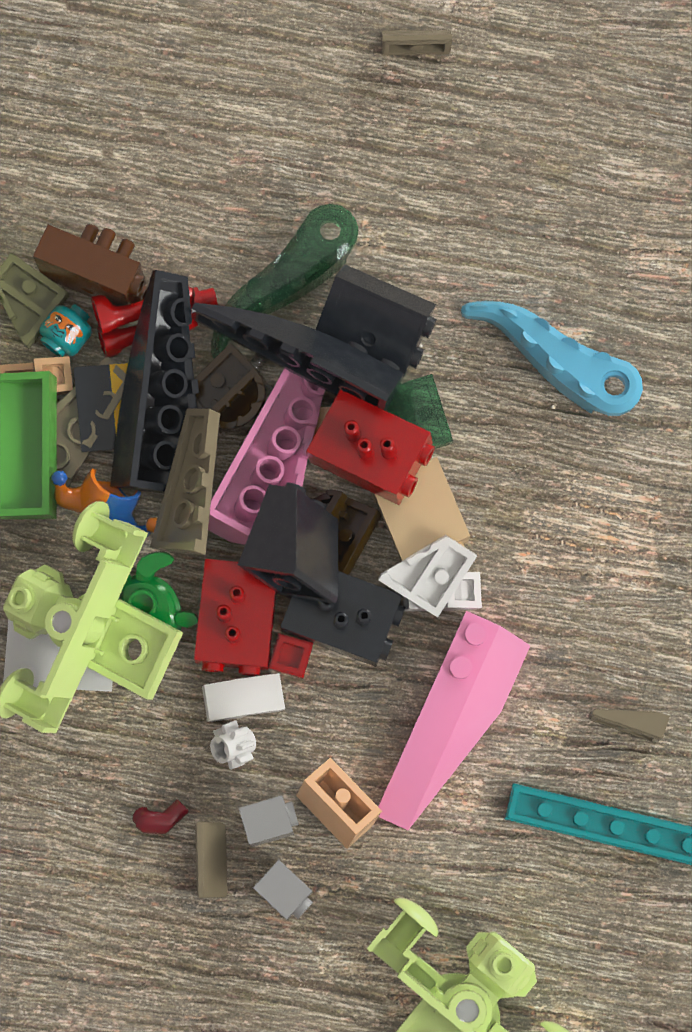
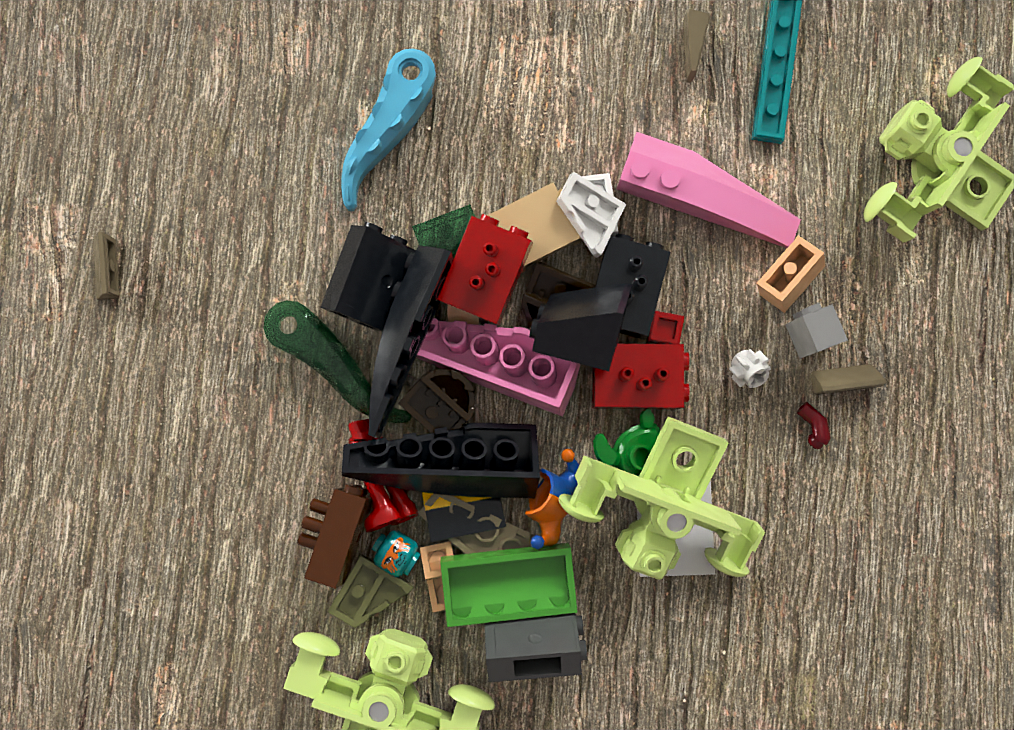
camera: 90 degrees left, 5 degrees up
(188, 493) = (543, 425): dark tan wing -> none
(243, 697) = (707, 365): white slope -> none
(284, 891) = (872, 312): light grey brick -> none

